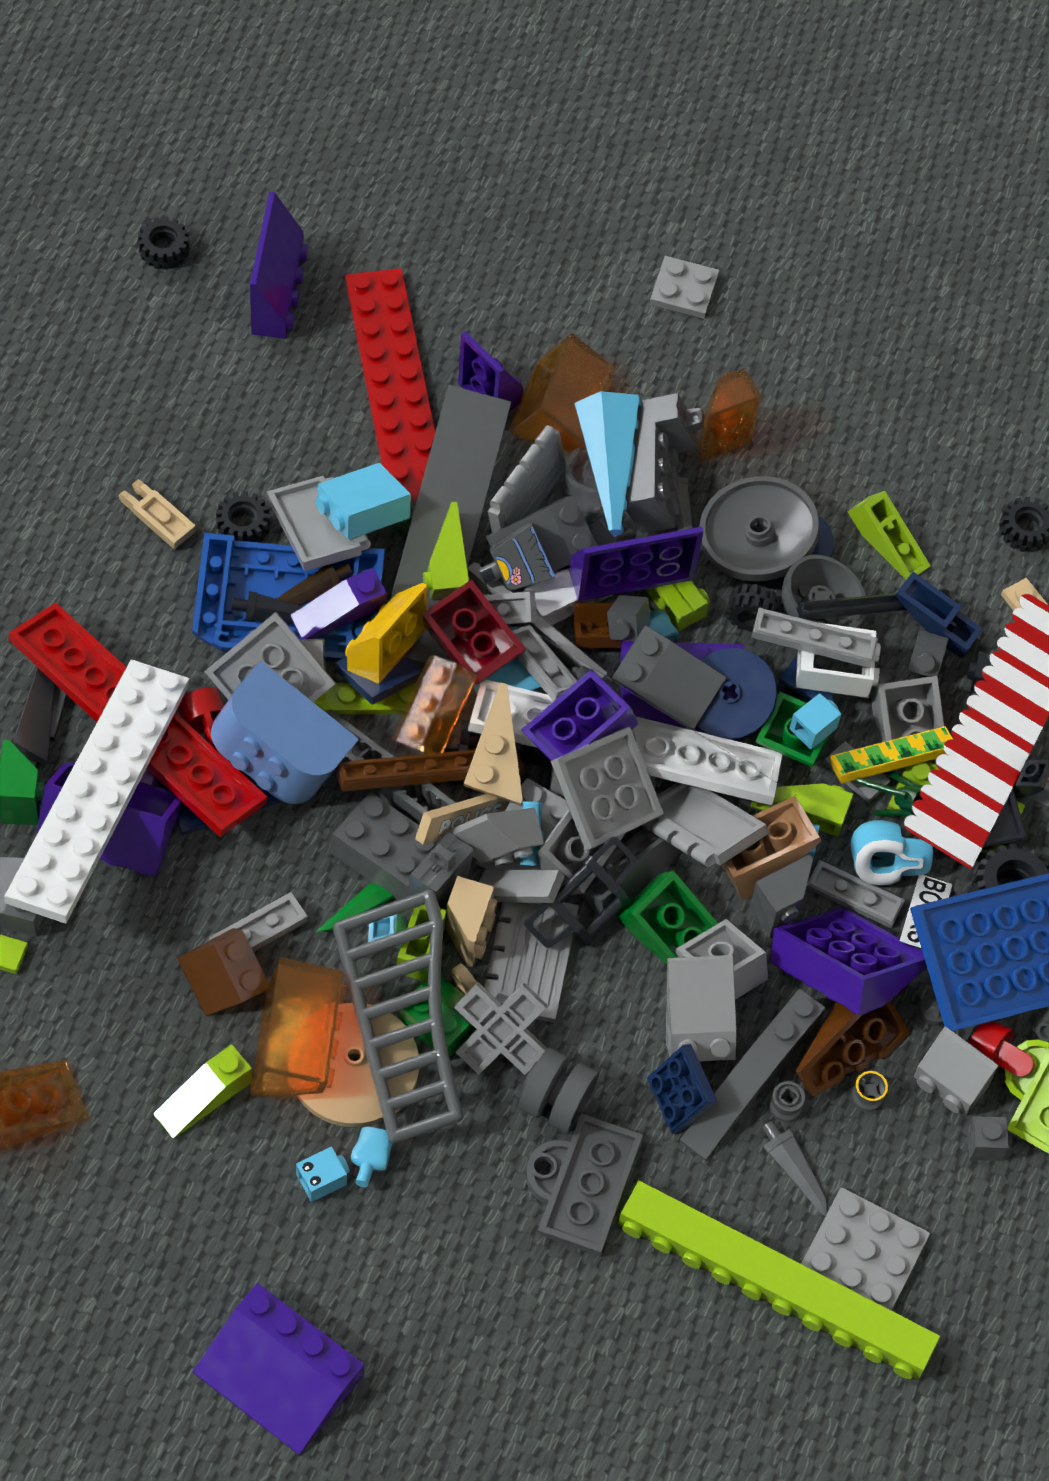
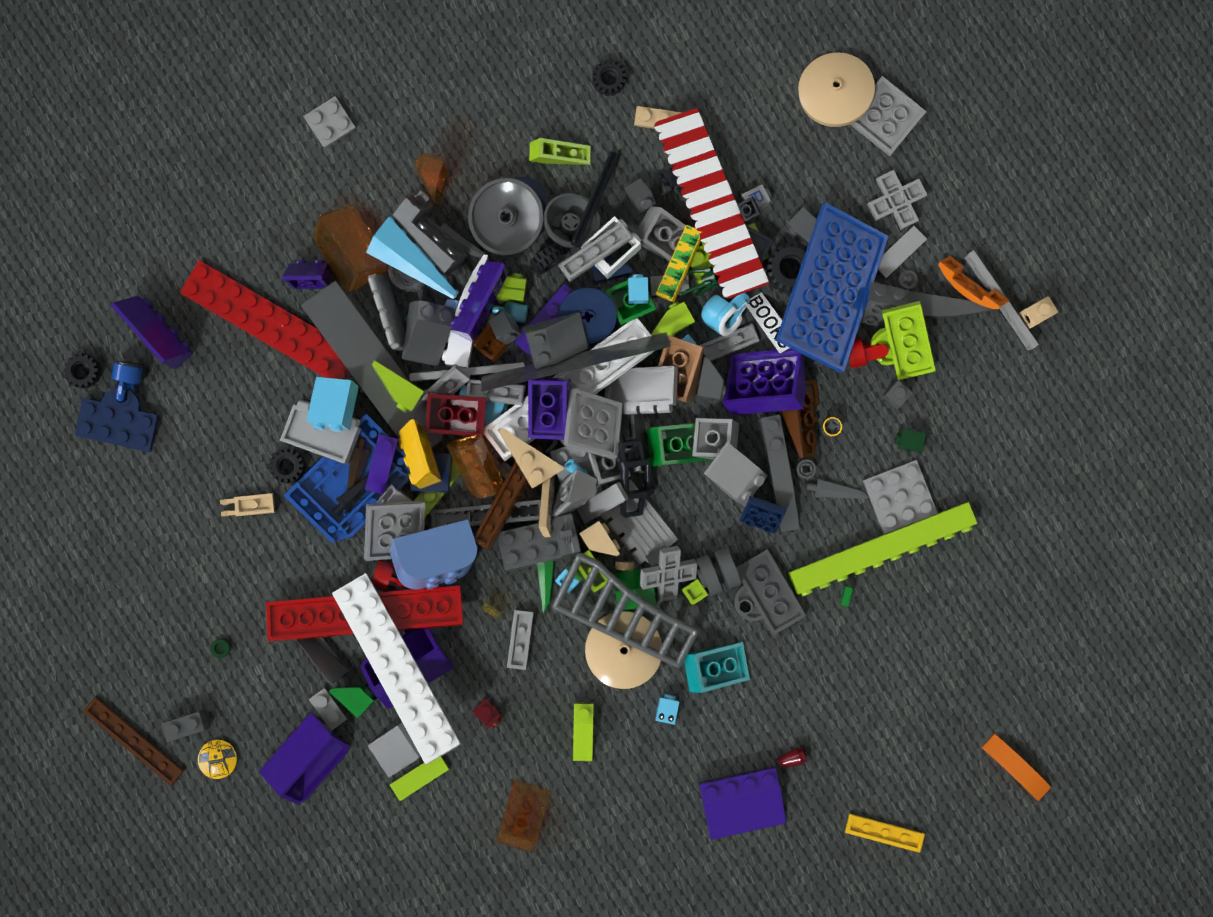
camera: 50 degrees left, 25 degrees up
(128, 964) = (488, 713): none -> dark red bracket
(143, 313) = (119, 414): none -> dark blue plate
(223, 971) = (532, 676): reddish brown slope -> none
(266, 866) = (491, 610): none -> clear yellow tile
(298, 1030) = (593, 668): clear orange windscreen -> none
(371, 1153) = (675, 680): medium azure piece -> none
(397, 1389) = (794, 757): none -> dark red cone
(433, 1192) = (716, 667): none -> teal slope
(505, 1091) = (694, 592): none -> lime plate
(518, 560) = (430, 355): dark grey torso -> none
(671, 1283) = (846, 596): none -> green tile
(938, 614) = (625, 171): dark blue slope -> none
(947, 1203) = (910, 440): none -> dark green brick
(955, 1072) = (857, 382): light grey slope -> none

